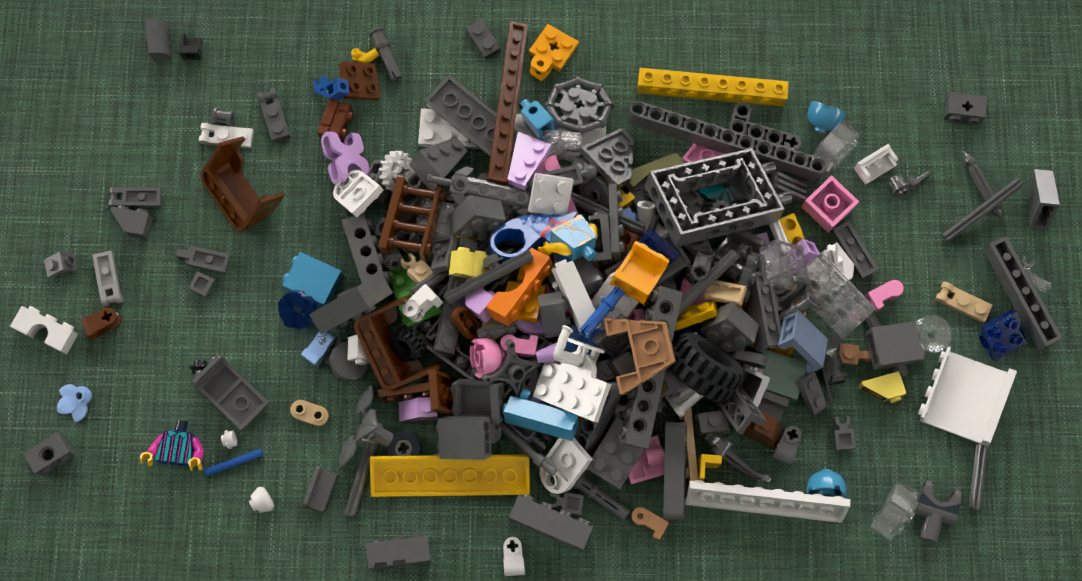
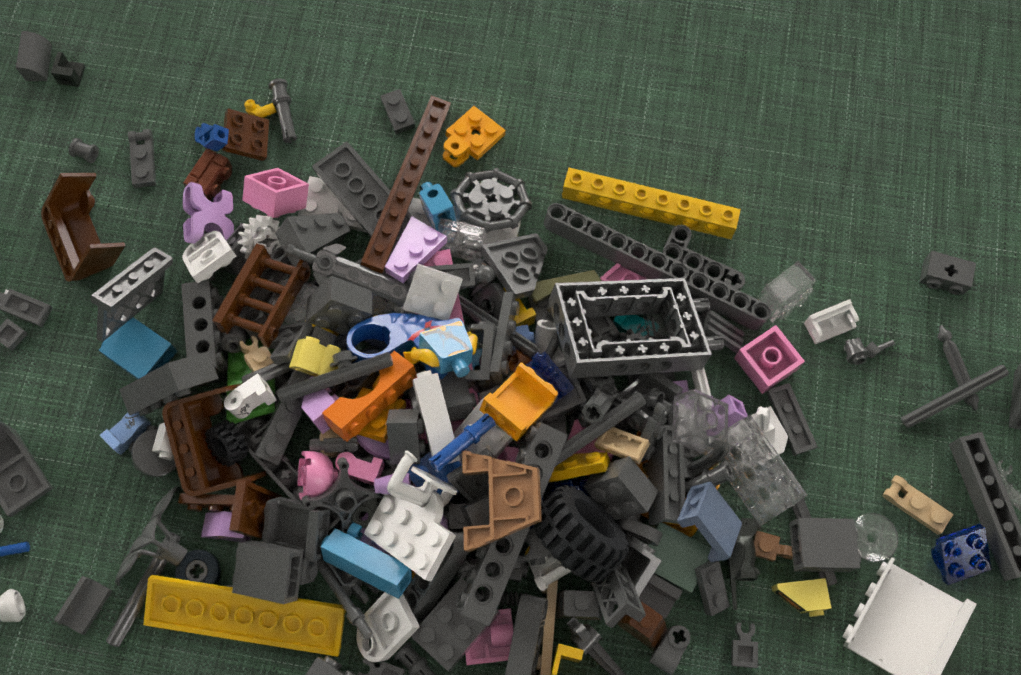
camera: 10 degrees right, 5 degrees down
(225, 133) = (103, 178): white plate -> none
(287, 313) = (98, 380): clear blue plate -> none
(303, 231) = (130, 292): none -> dark grey fence
(309, 412) = (95, 507): tan plate -> none
(398, 128) = (275, 192): none -> bright pink brick
(465, 320) = (300, 427): reddish brown plate -> none
(791, 228) = (718, 381): yellow leg -> none
(824, 117) = (777, 256): dark azure cylinder -> none
(889, 290) = (827, 475): bright pink leg -> none

